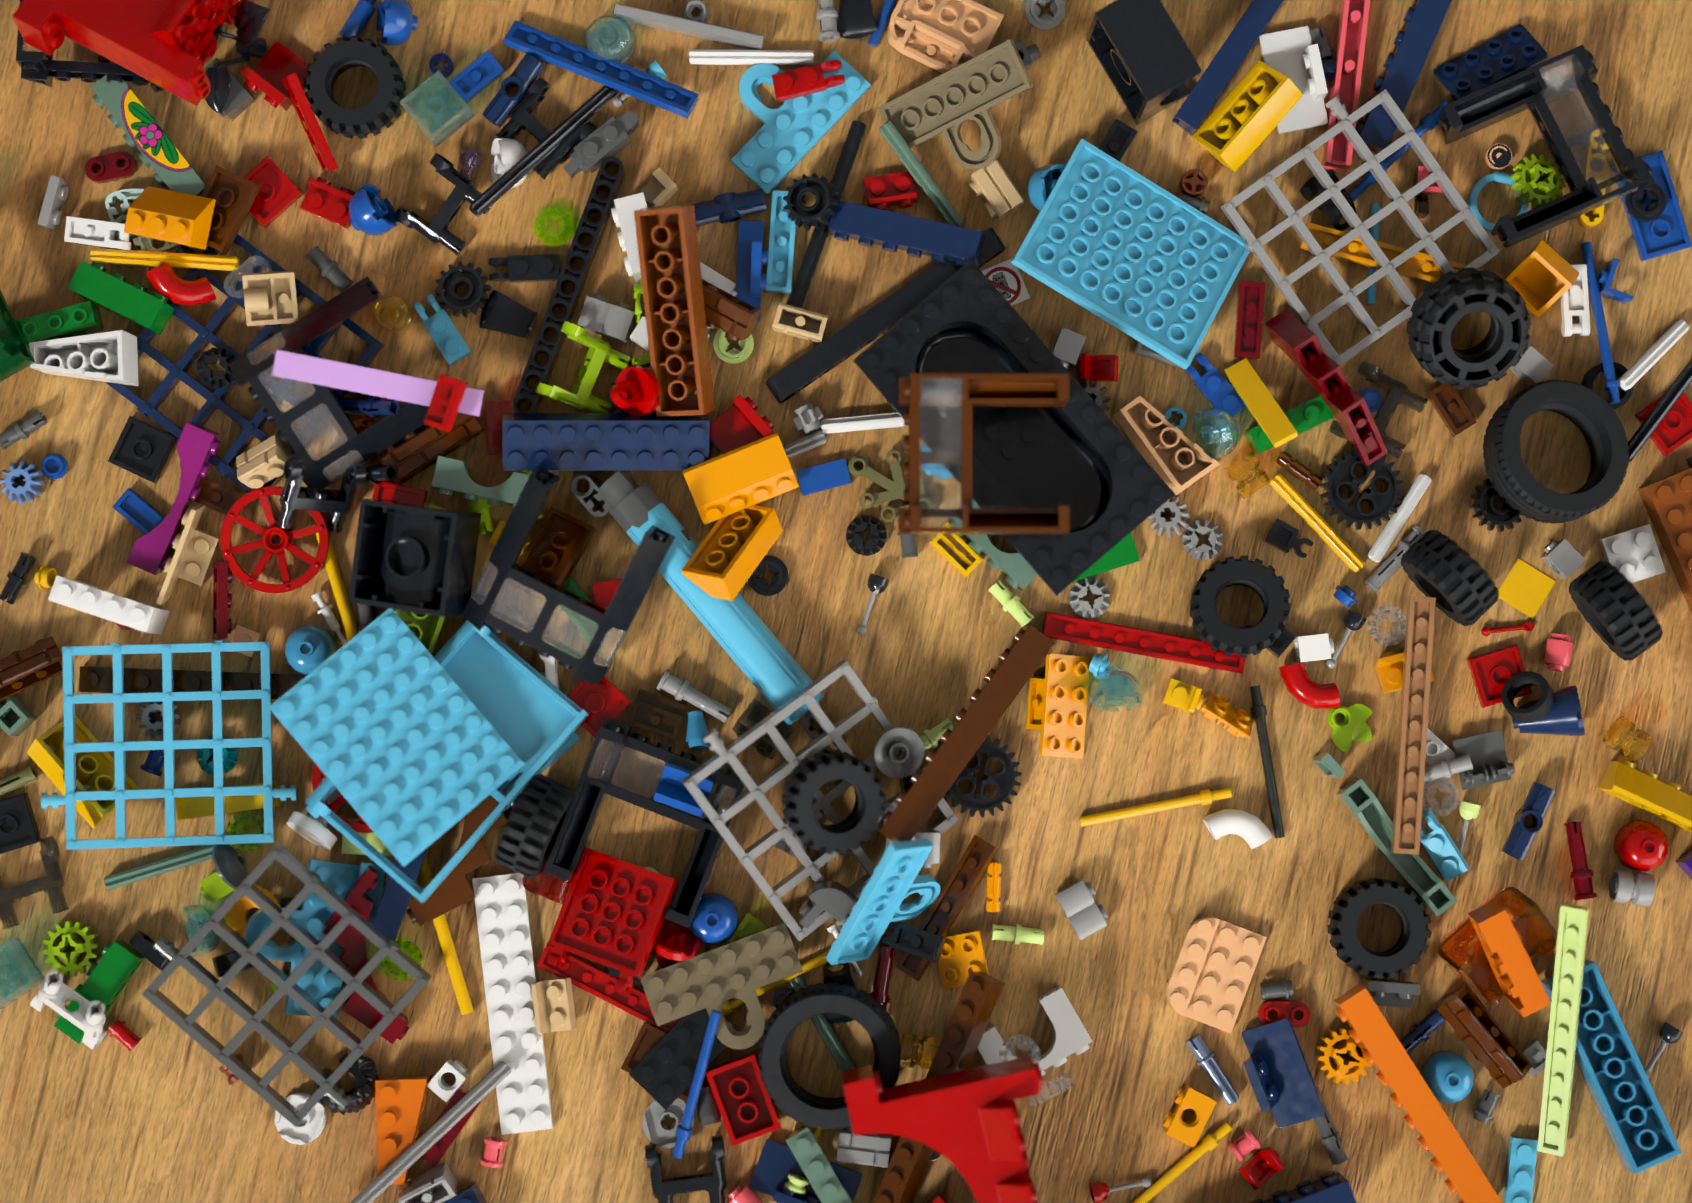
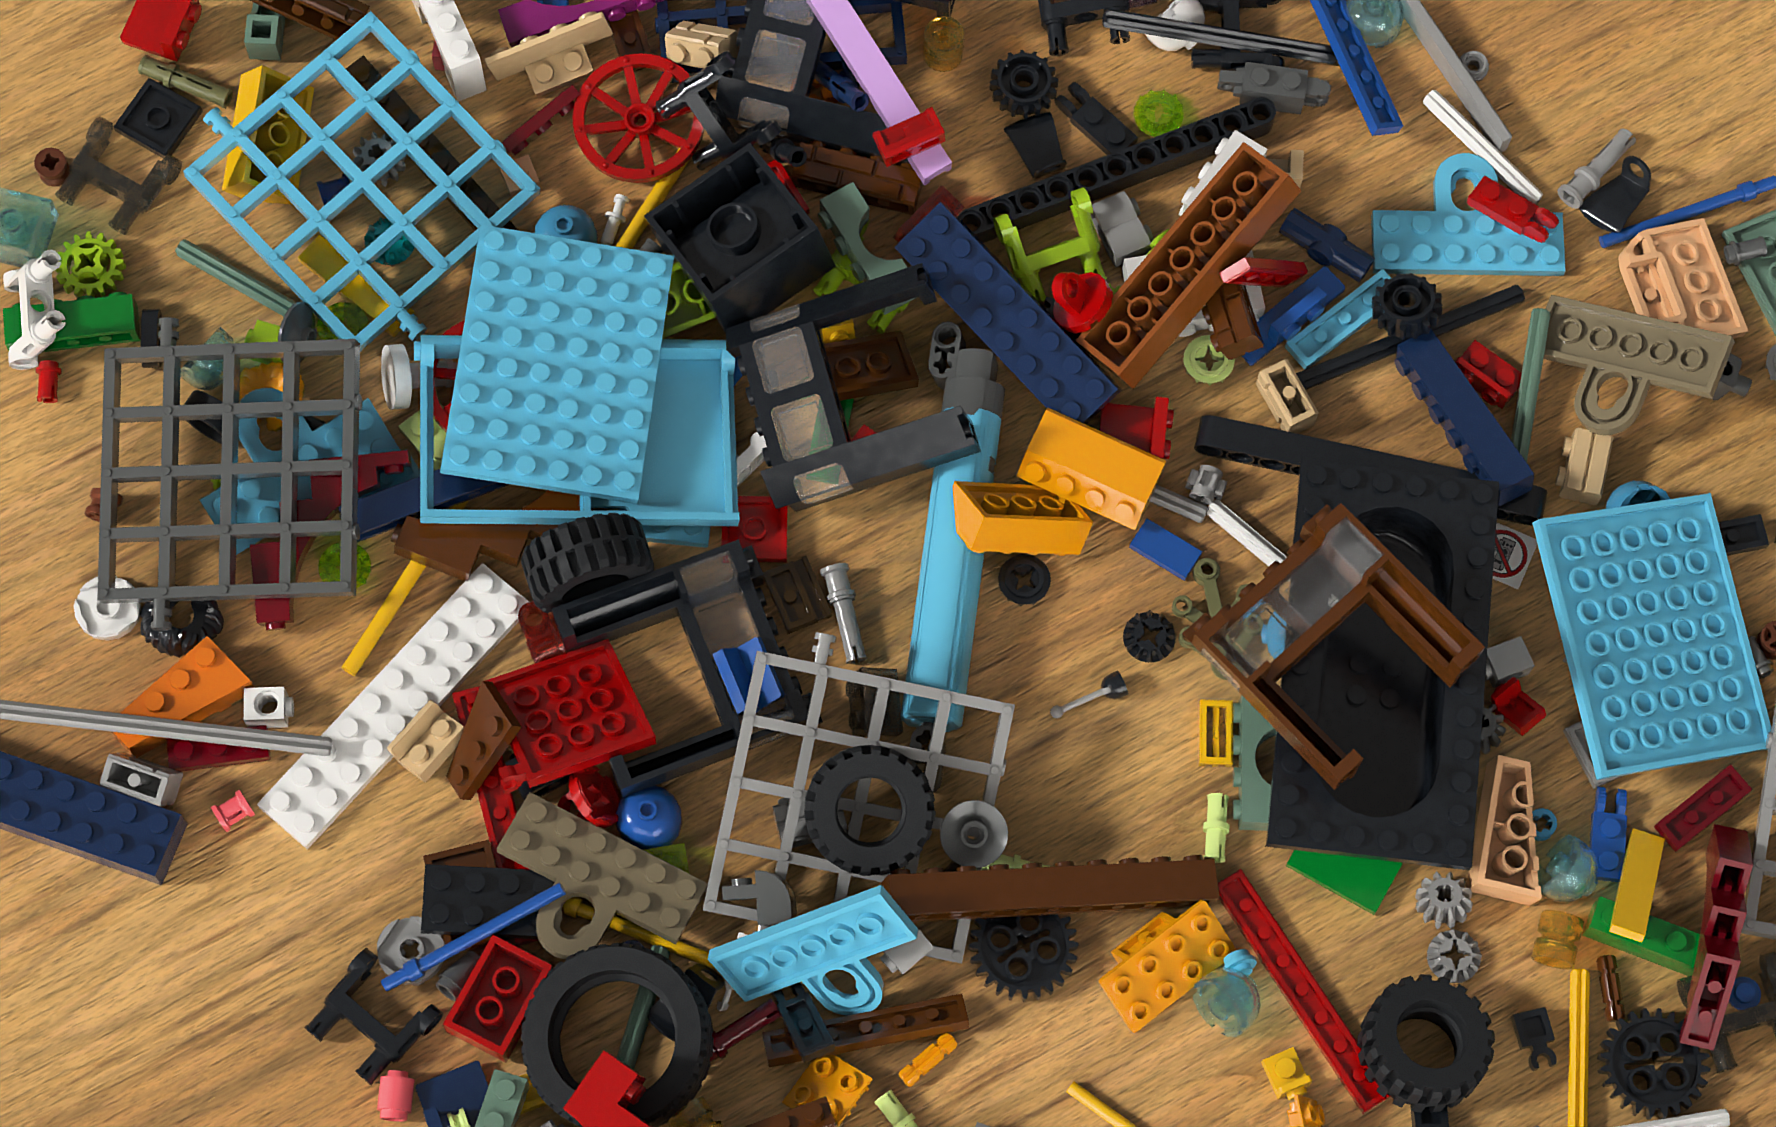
camera: 45 degrees right, 15 degrees down
(443, 332) = (968, 102): medium azure hinge -> none
(585, 977) = (483, 741): none -> reddish brown wing
(653, 69) = (1386, 72): medium azure hinge -> none
(696, 730) = (804, 645): dark azure cone -> none
(717, 268) = (1264, 272): none -> red tile
(908, 545) = (1181, 679): dark grey pin -> none
(1080, 590) = (1297, 913): light grey gear -> none

